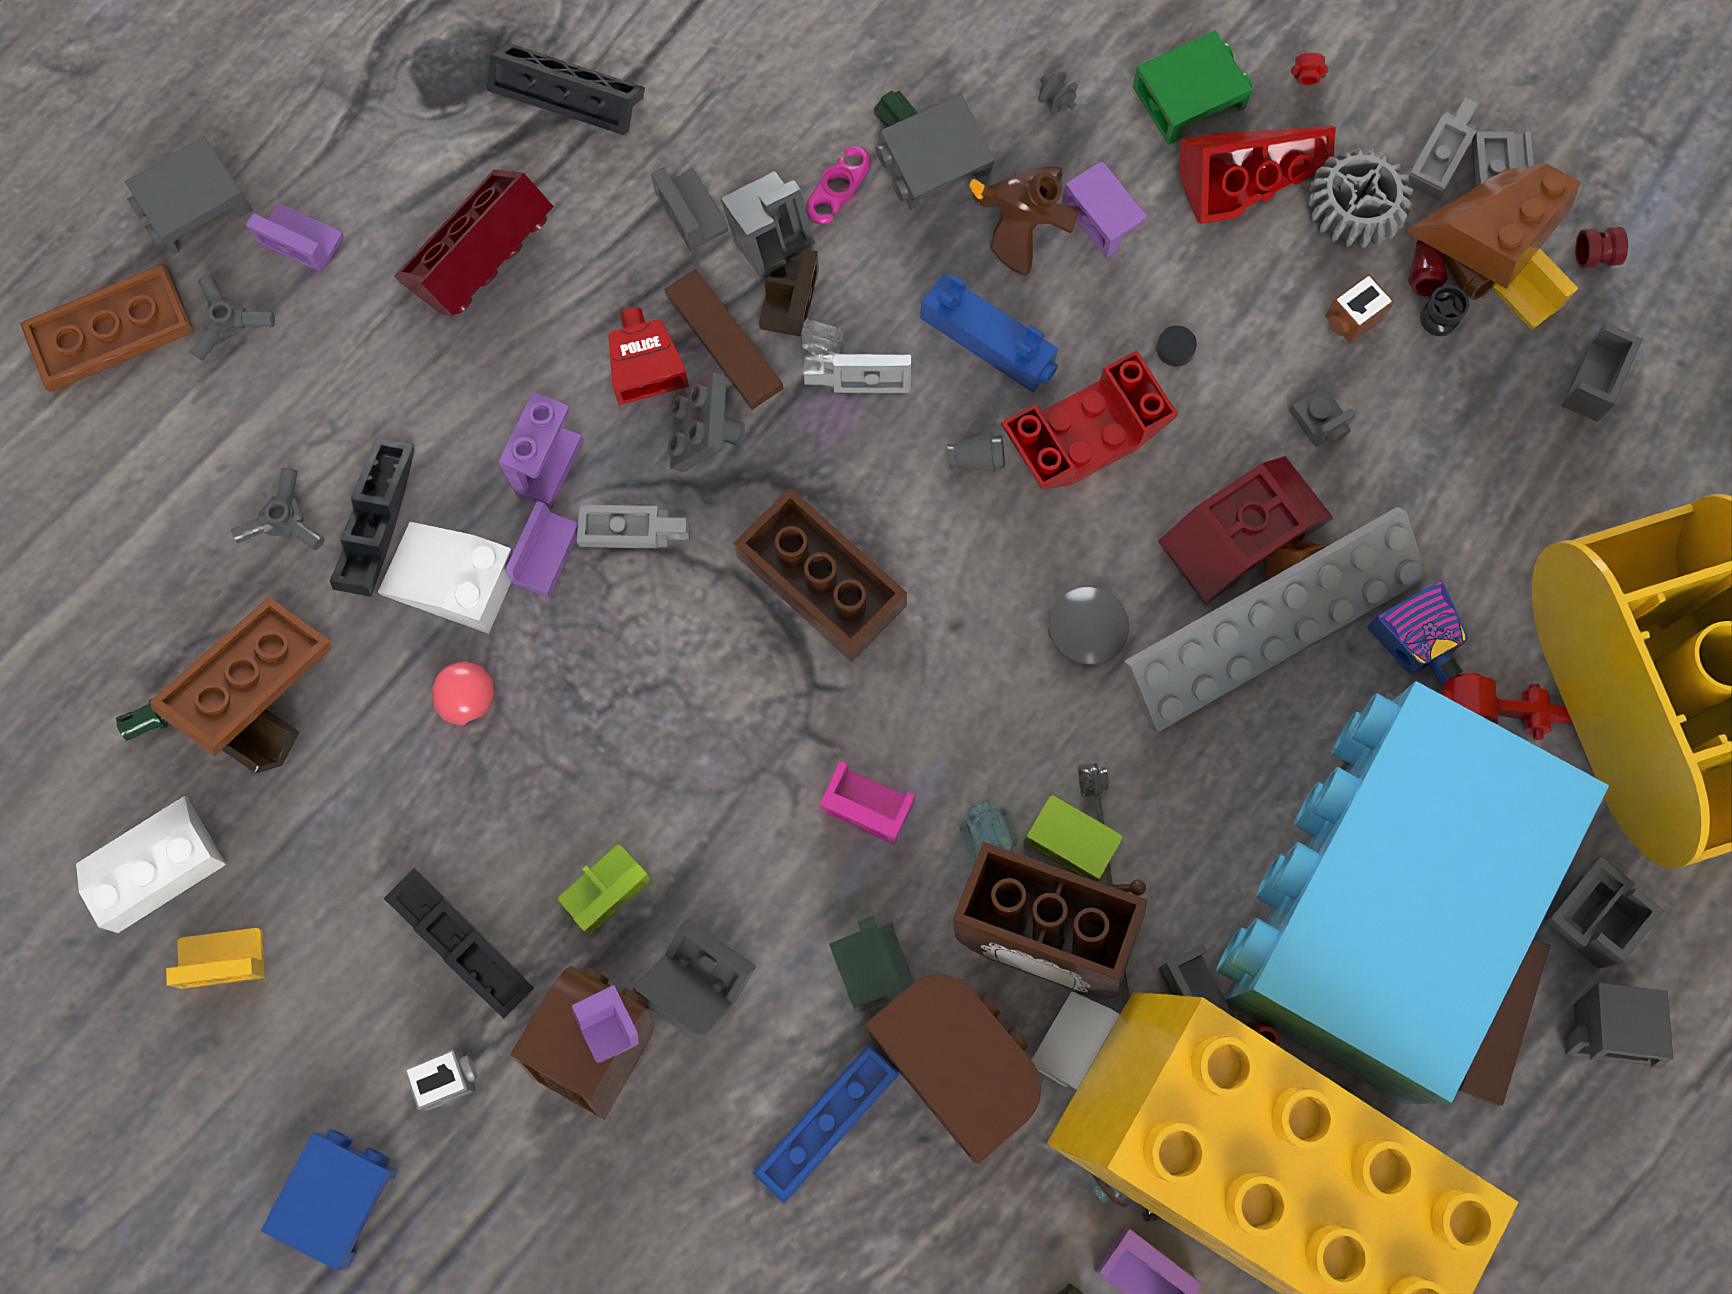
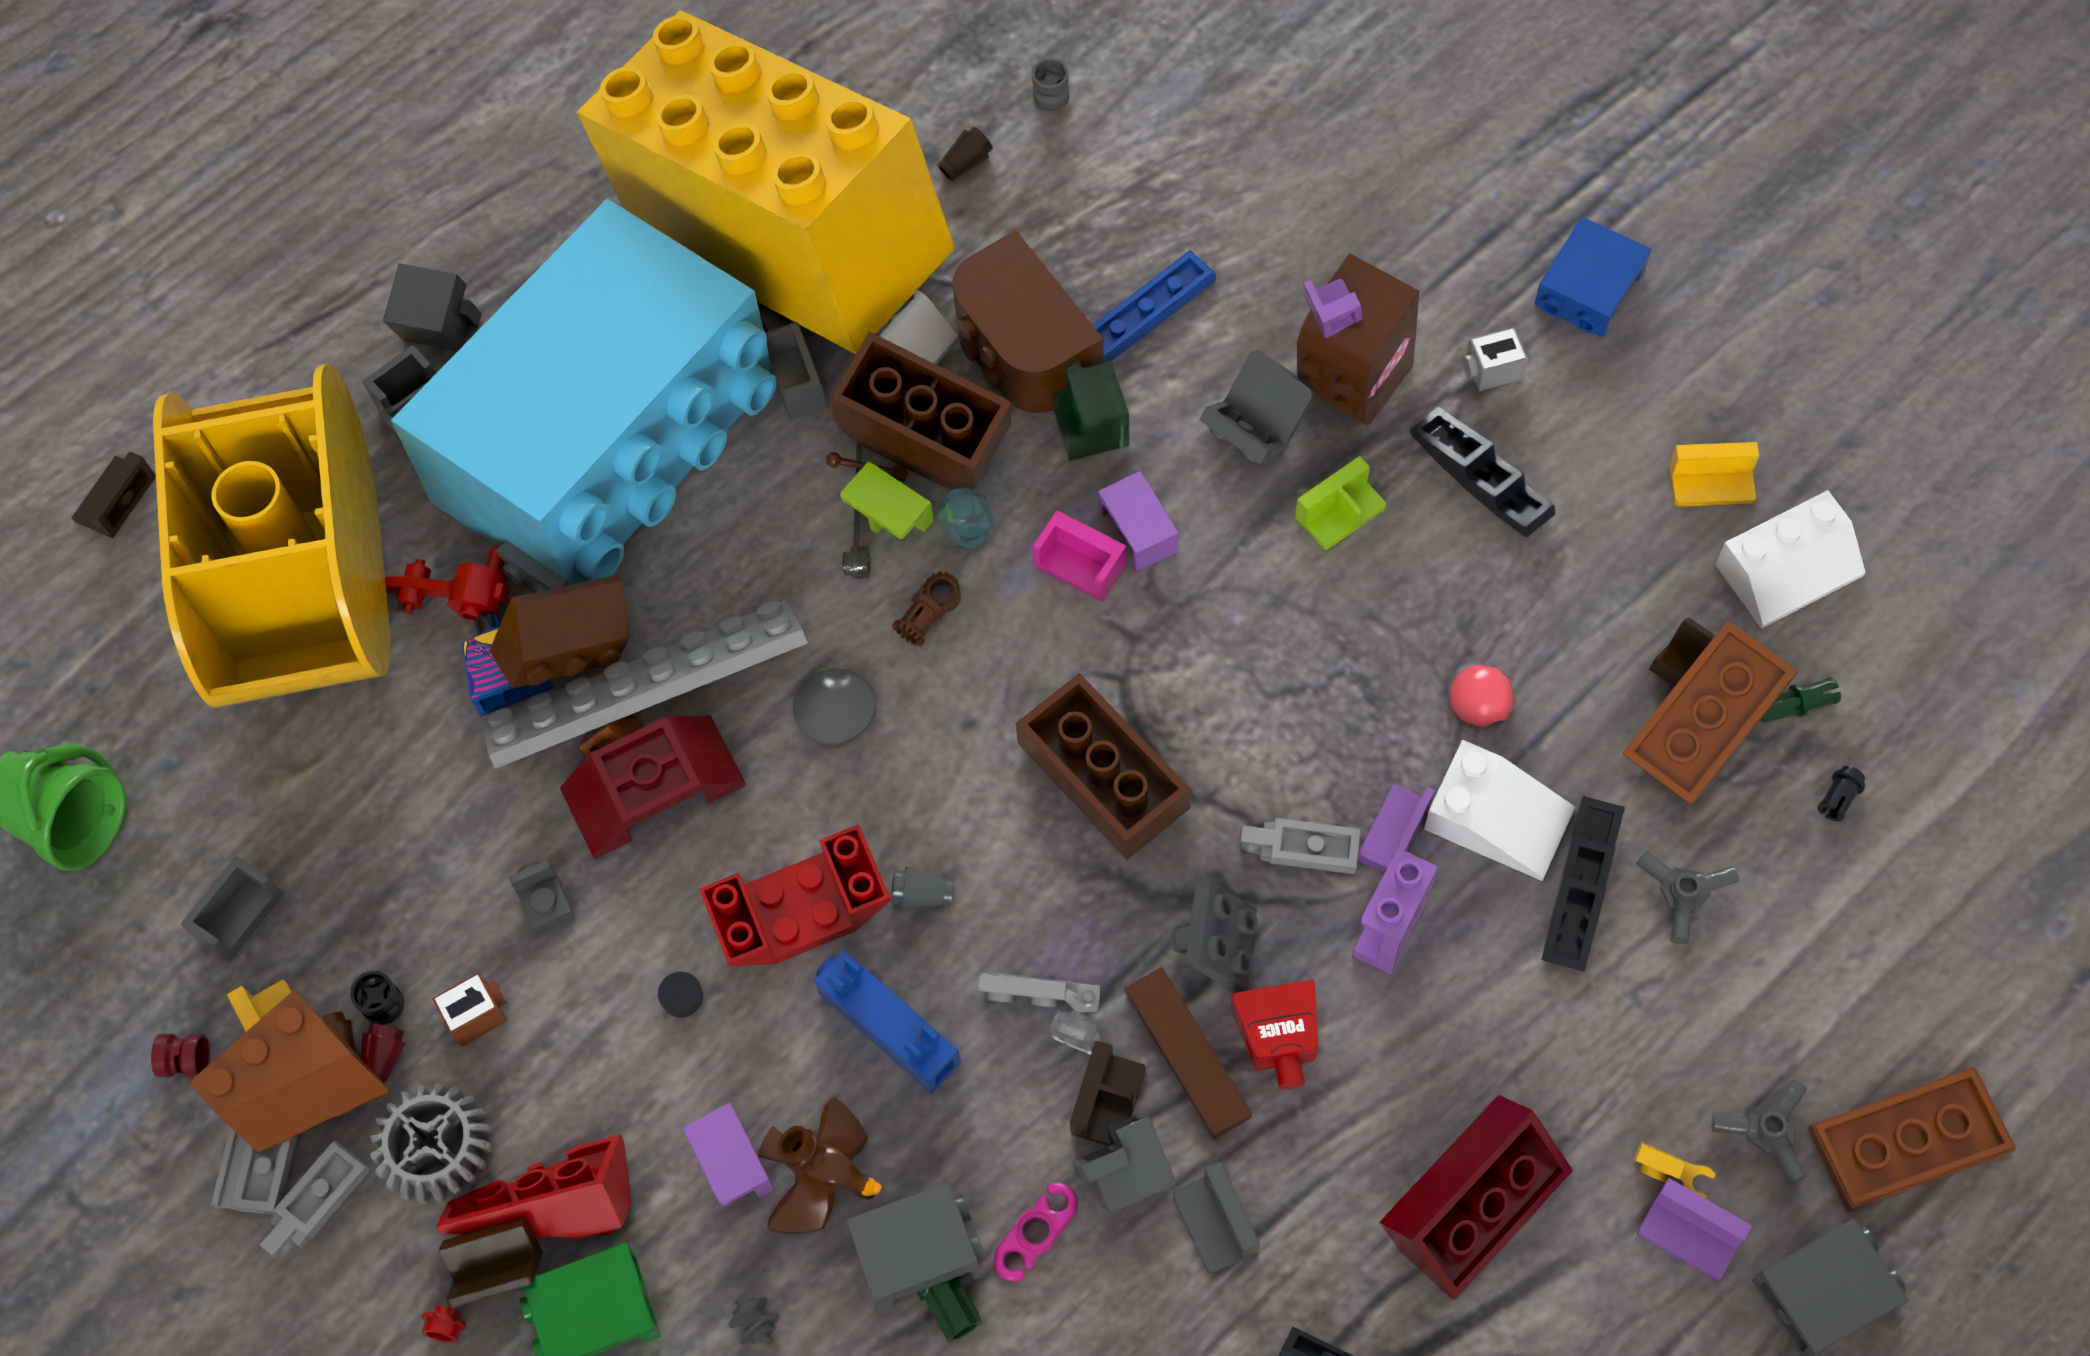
camera: 170 degrees left, 10 degrees down
(127, 625) = (1846, 784): none -> black pin
(314, 277) = (1661, 1164): none -> yellow plate
(811, 847) = (1140, 520): none -> medium lavender panel
(1013, 734) = (927, 609): none -> reddish brown connector
(1280, 103) = (491, 1261): none -> dark brown panel
(1366, 639) = (562, 631): none -> reddish brown slope

